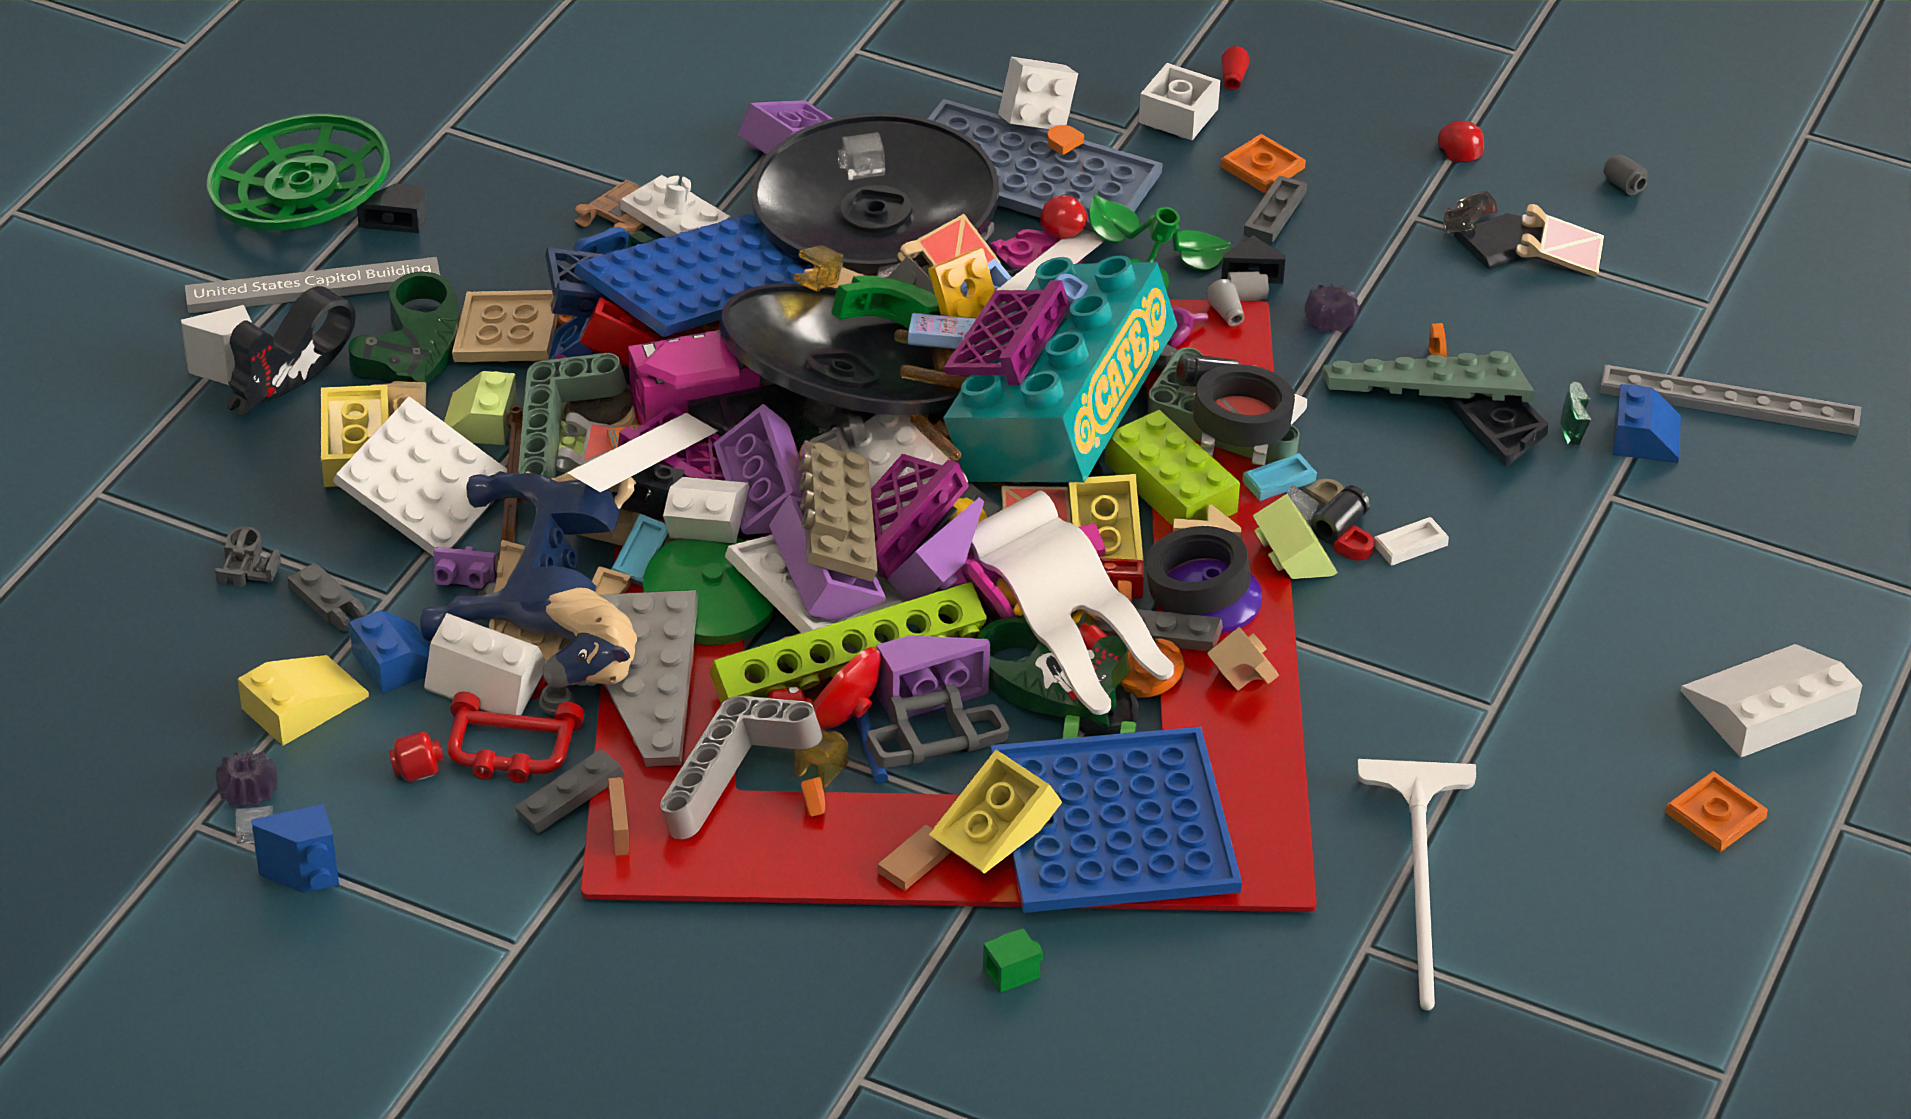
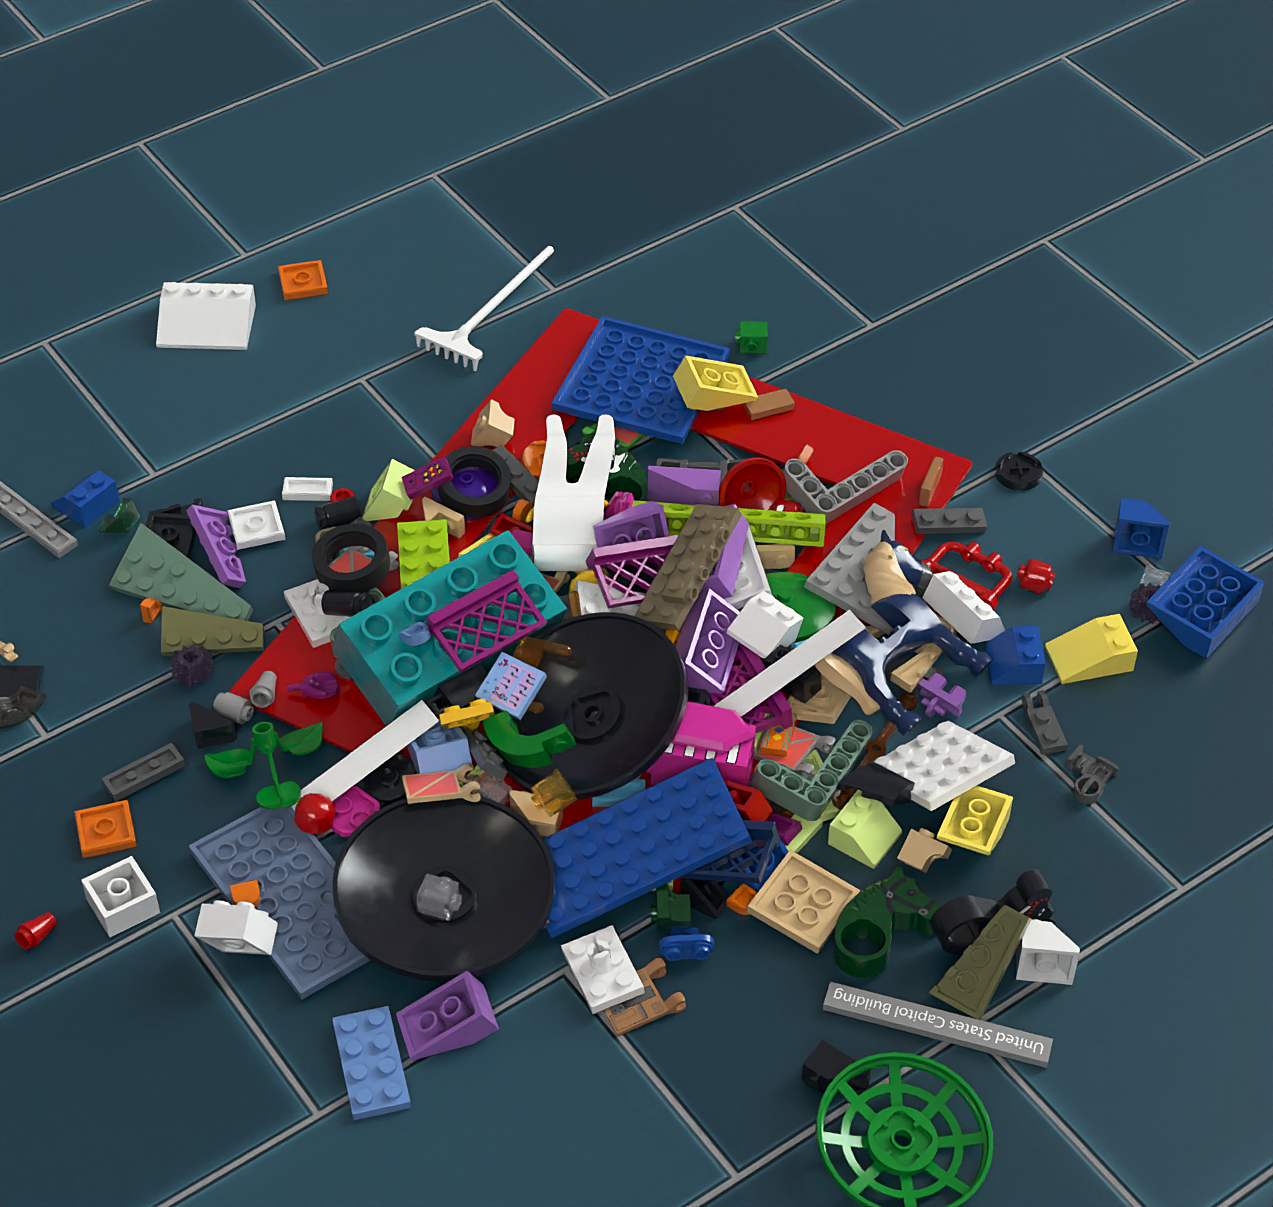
camera: 150 degrees left, 5 degrees up
(167, 785) = (1205, 600): none -> blue slope
(269, 308) = (978, 972): none -> olive wing
(482, 416) = (879, 784): none -> black slope
(511, 915) = (1019, 471): none -> black tile
(836, 86) = (371, 1063): none -> medium blue plate
(1246, 526) = (427, 477): none -> magenta tile
(1347, 343) = (213, 632): none -> olive wing
(1421, 472) = (256, 525): none -> white plate
(1444, 428) = (216, 539): none -> medium lavender wing

